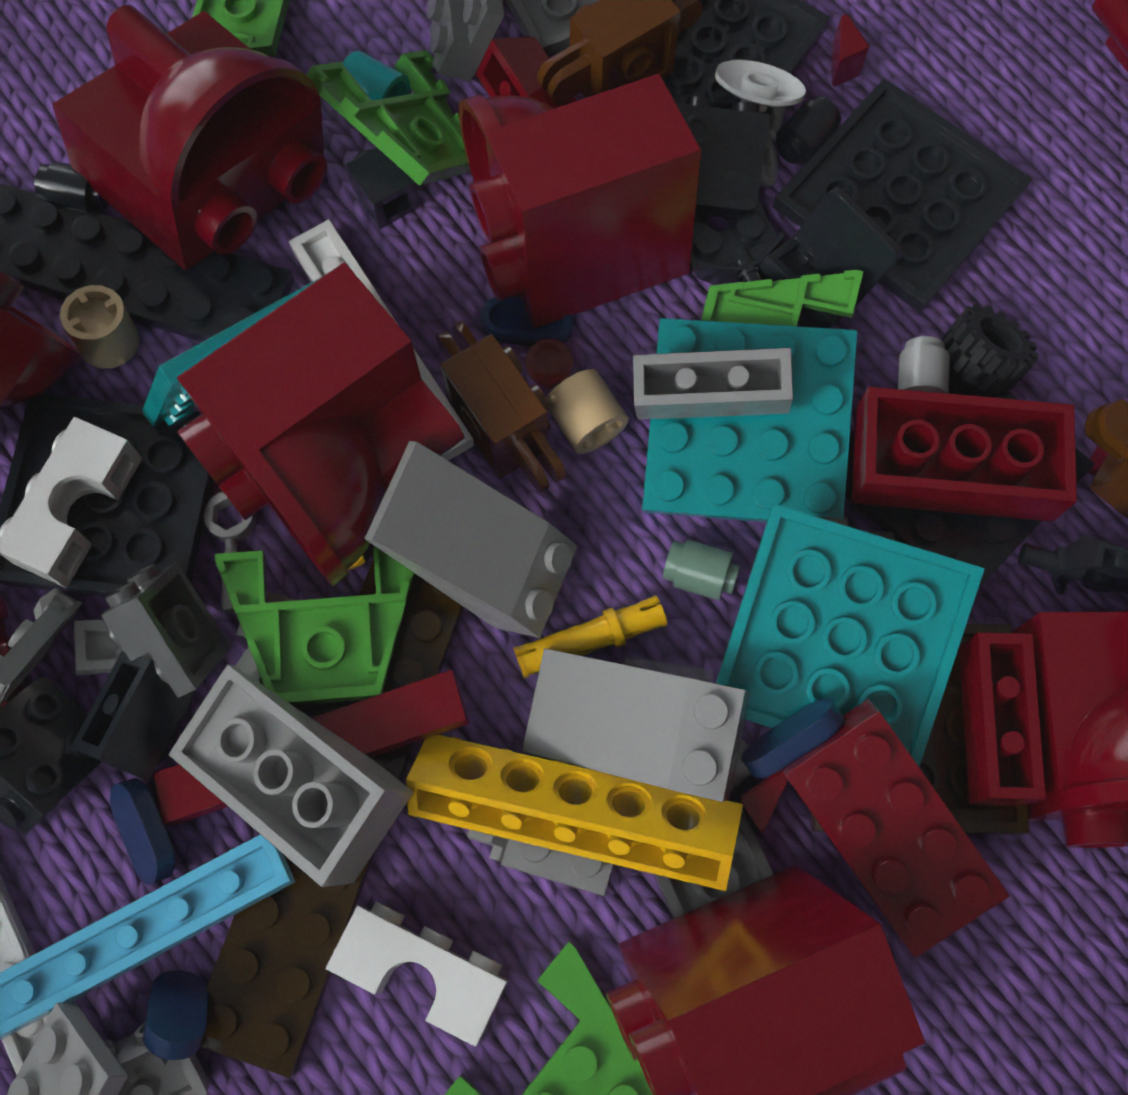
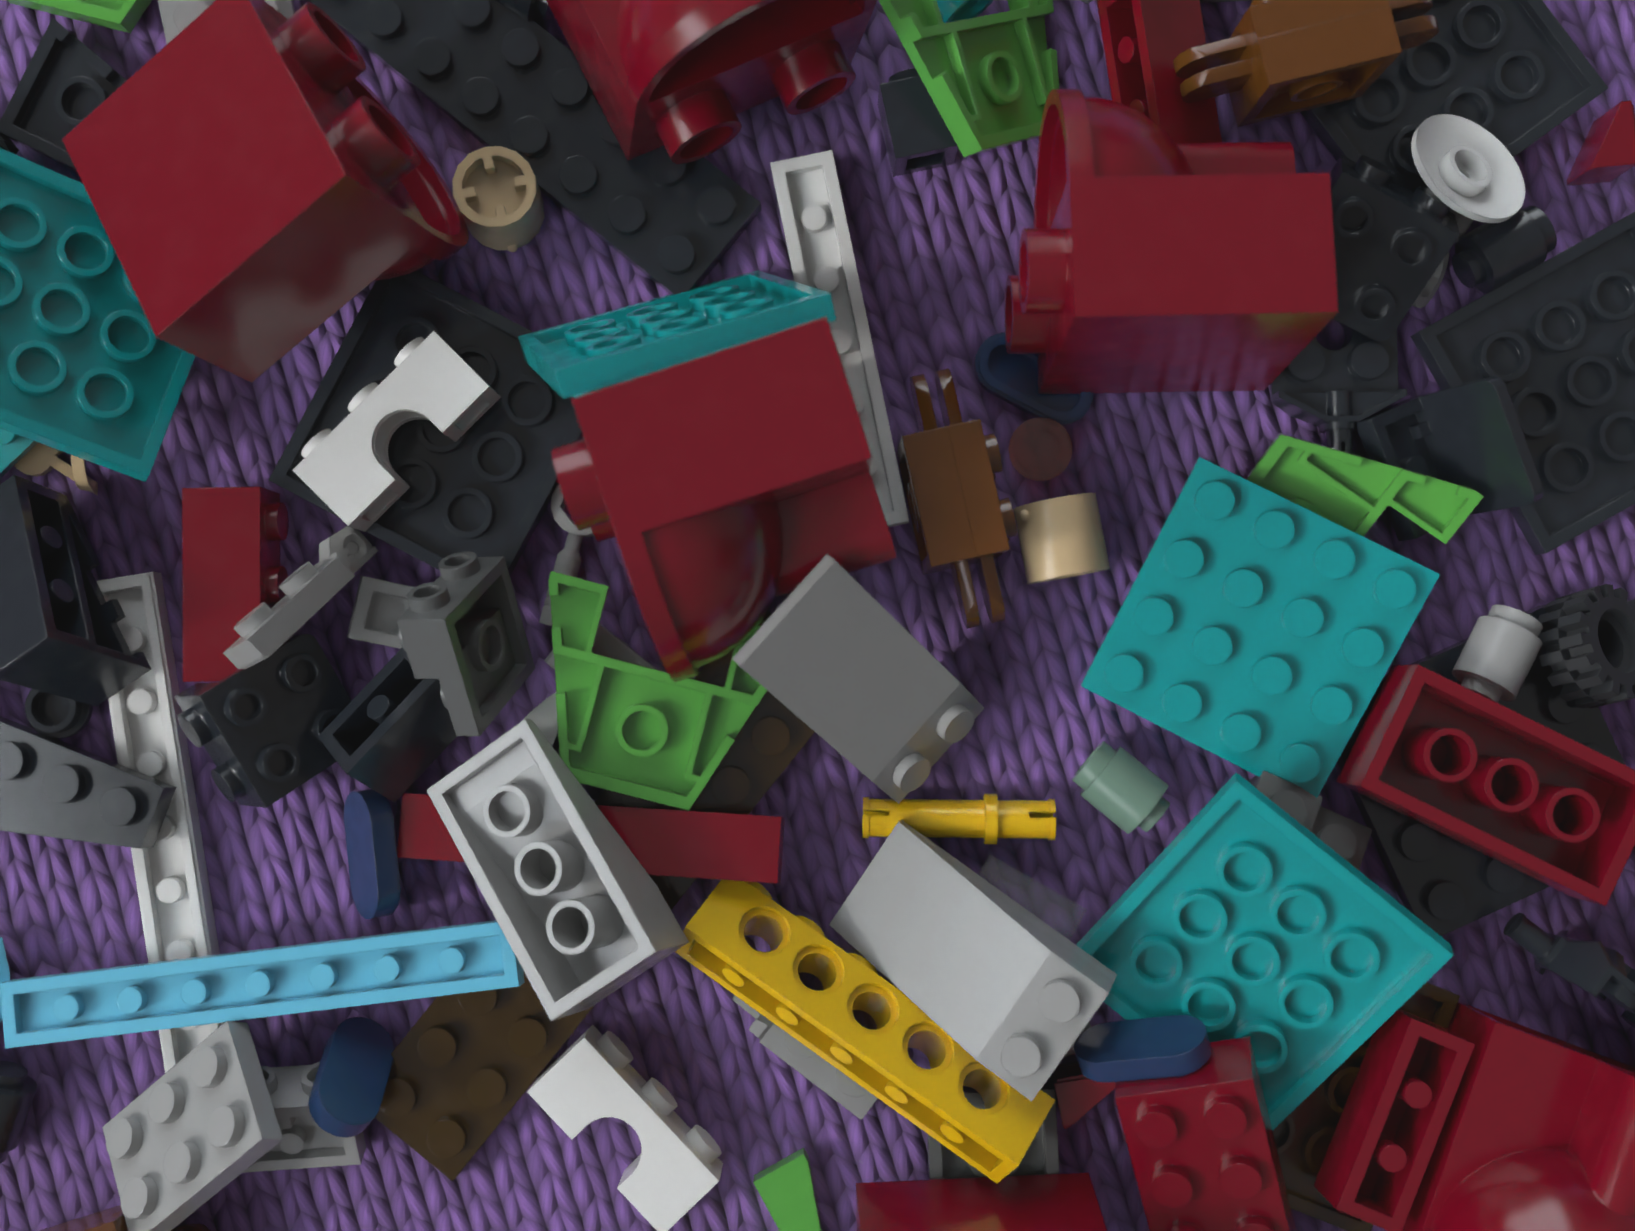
camera: 25 degrees right, 15 degrees up
(713, 383) = (1229, 589): light grey brick -> none

